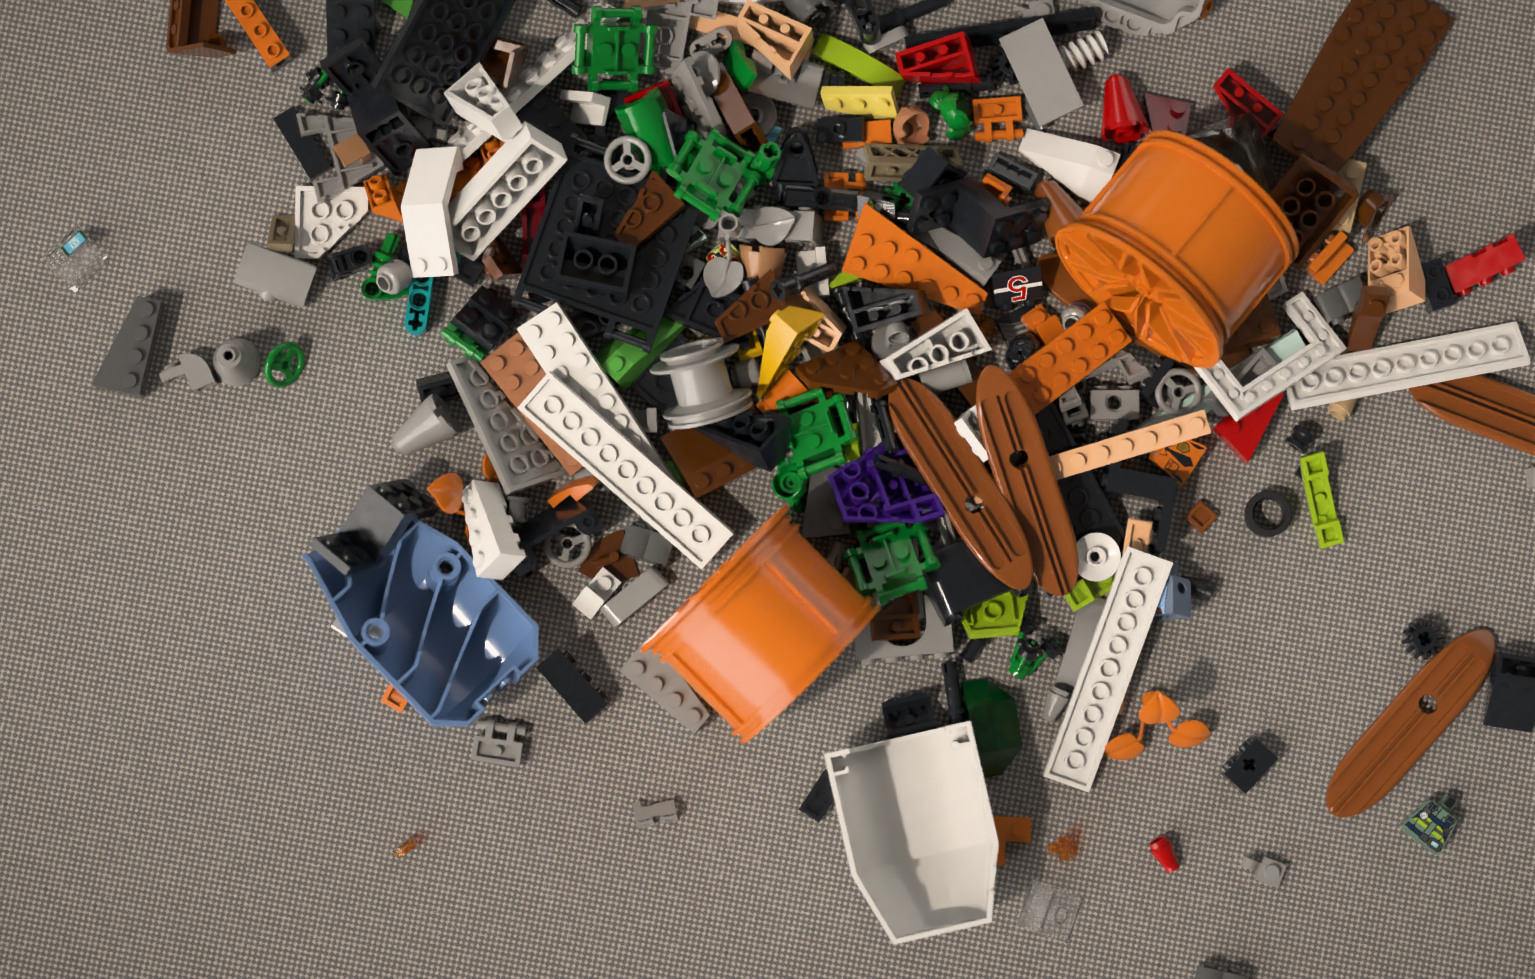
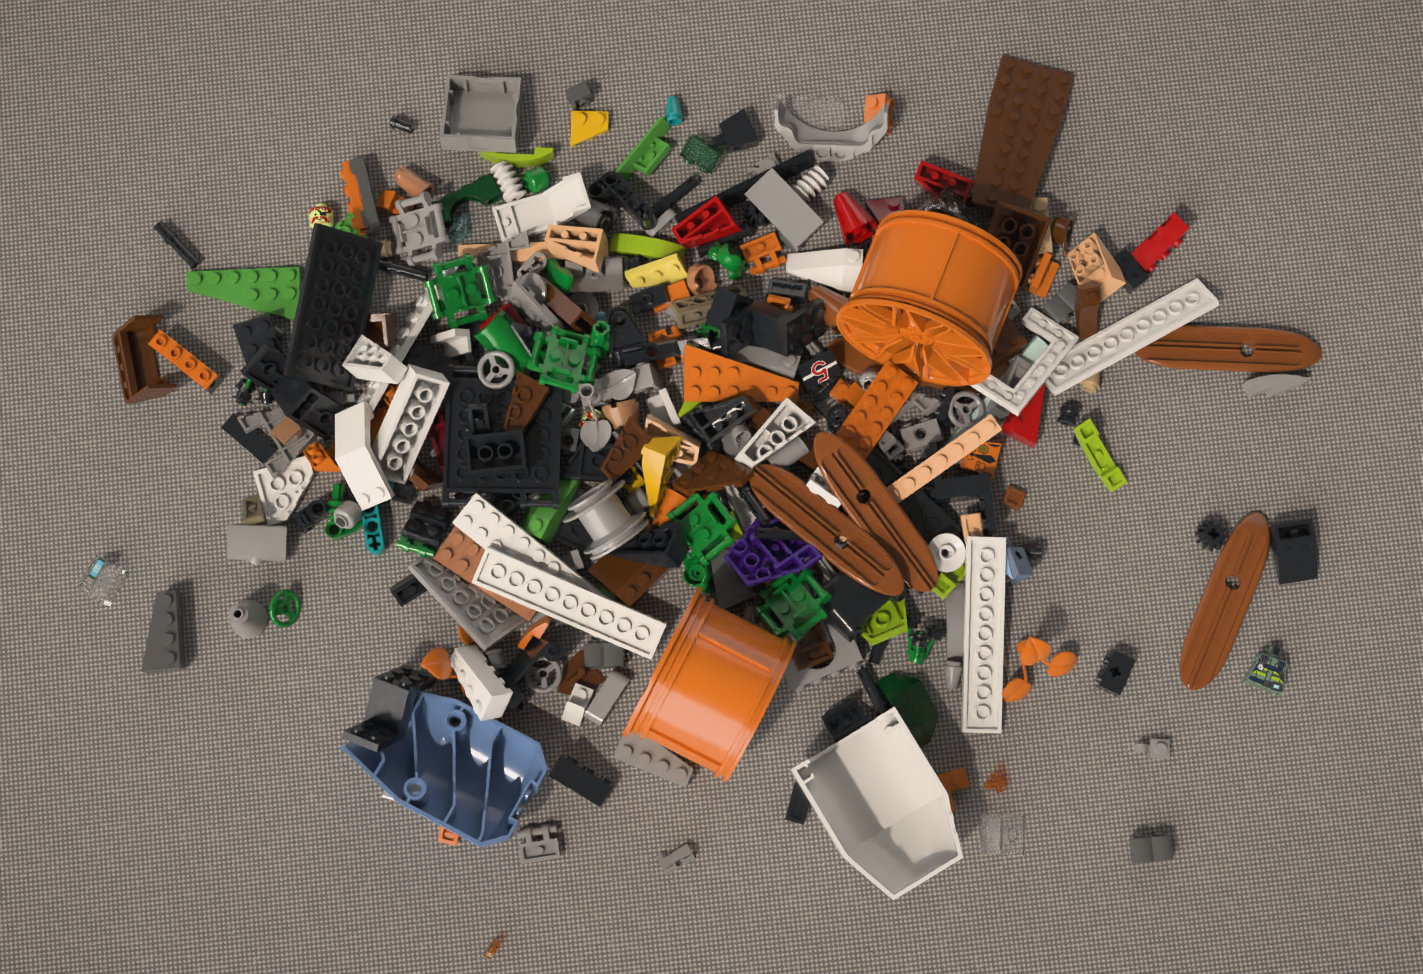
camera: 10 degrees left, 5 degrees down
(194, 368) = (215, 633): light grey brick -> none
(426, 427) = (407, 620): light grey cone -> none
(795, 283) = (652, 420): black pin -> none
(1164, 853) = (1073, 760): red cone -> none
(1281, 501) = (1062, 493): black tyre -> none

